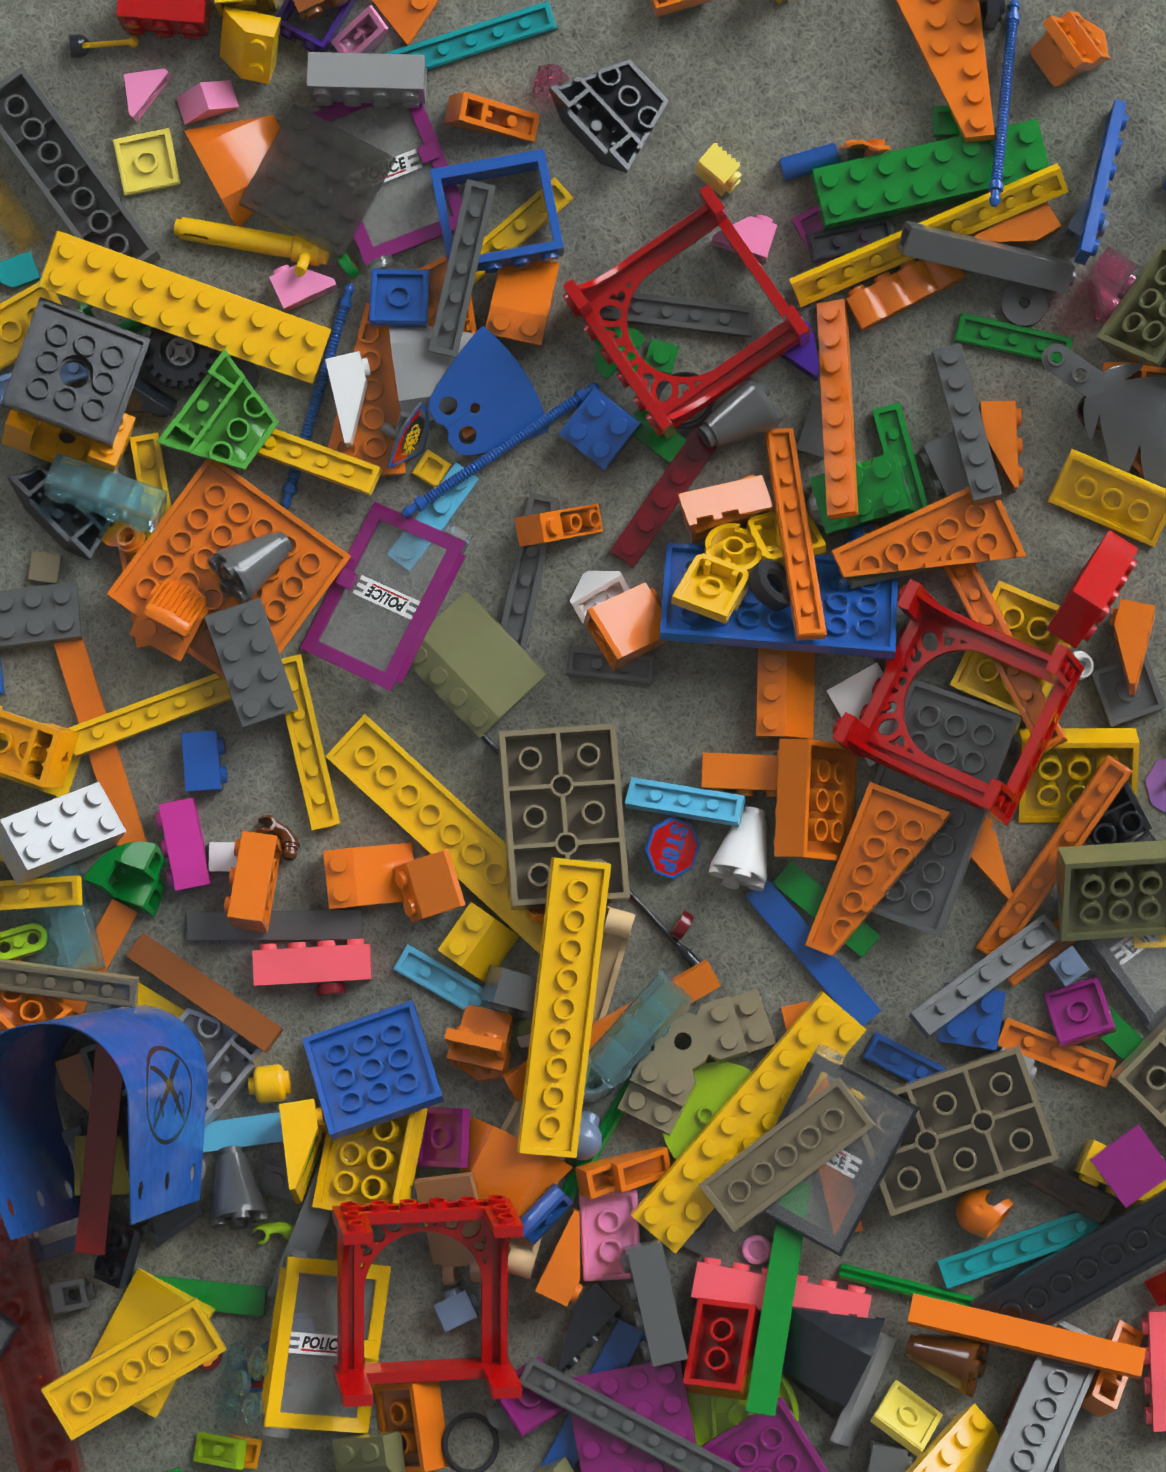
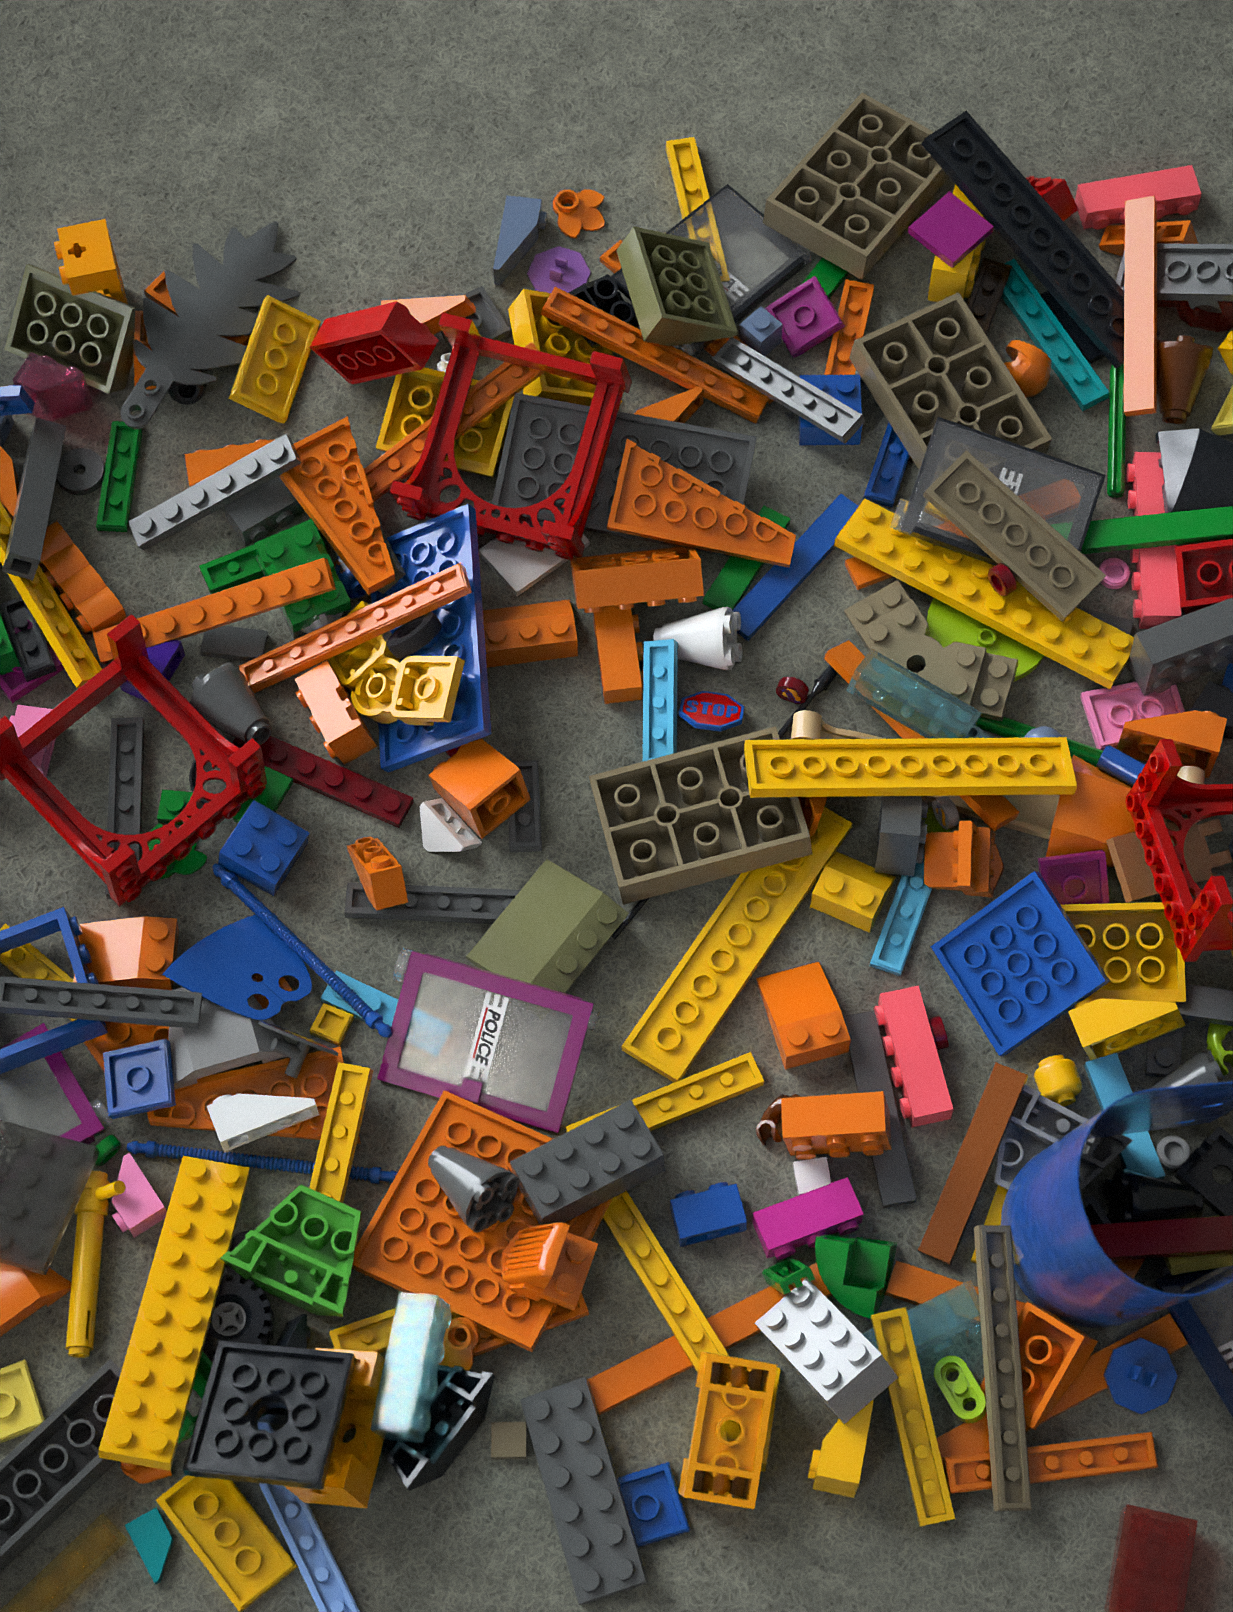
camera: 105 degrees left, 20 degrees down
(123, 819) = (784, 1278): none -> green tile
(429, 886) = (802, 939): orange slope -> none
(622, 1172) = (1067, 706): orange slope -> none
(746, 1135) = (1002, 579): none -> dark red tile

